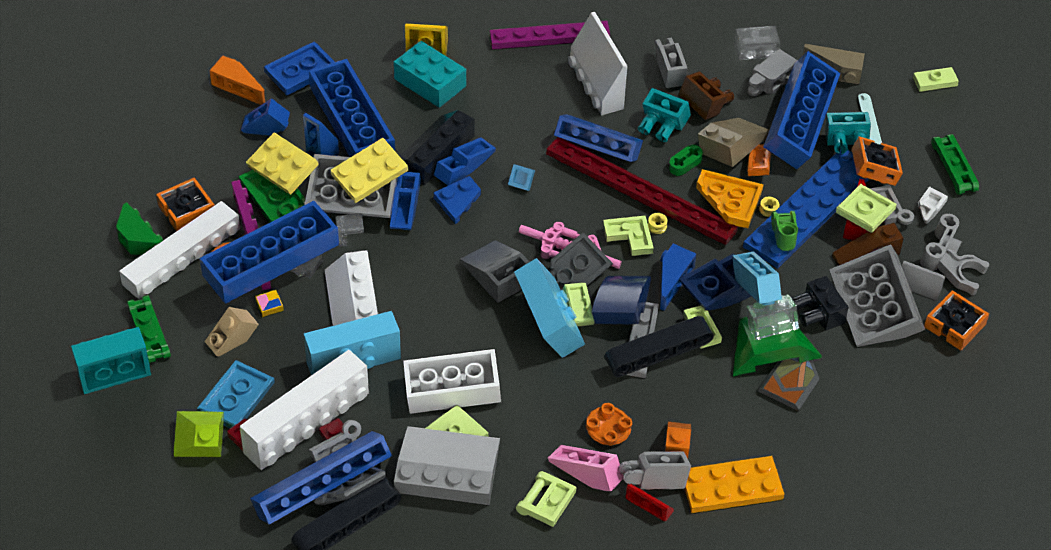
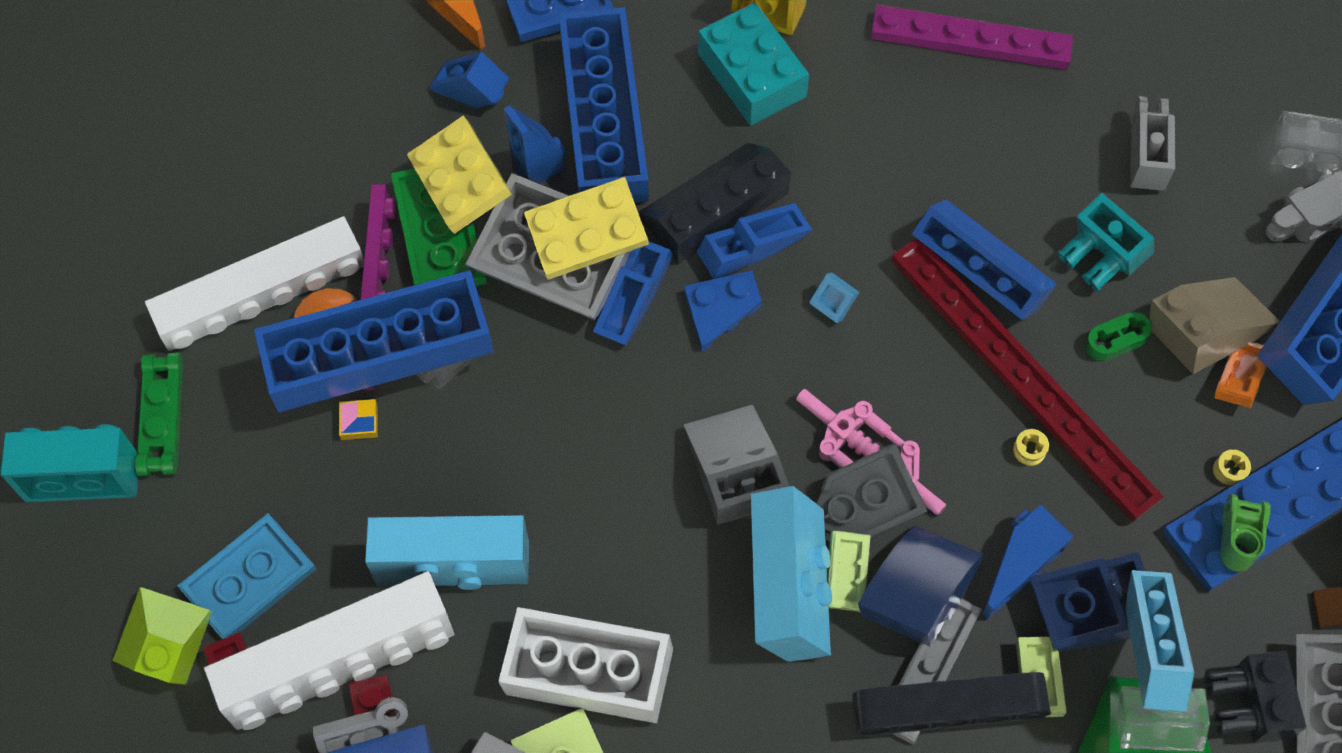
camera: 20 degrees right, 15 degrees up
(135, 233) = (199, 232): green slope -> none
(184, 203) = (291, 202): piece -> none
(231, 331) = (279, 458): tan slope -> none
(348, 225) = (526, 316): clear panel -> none
(350, 288) = (488, 446): white slope -> none
(599, 66) = (1027, 127): white slope -> none
(631, 229) = (985, 449): yellowish green plate -> none
(704, 94) = (1187, 222): reddish brown brick -> none
(730, 196) = (1170, 434): light orange plate -> none

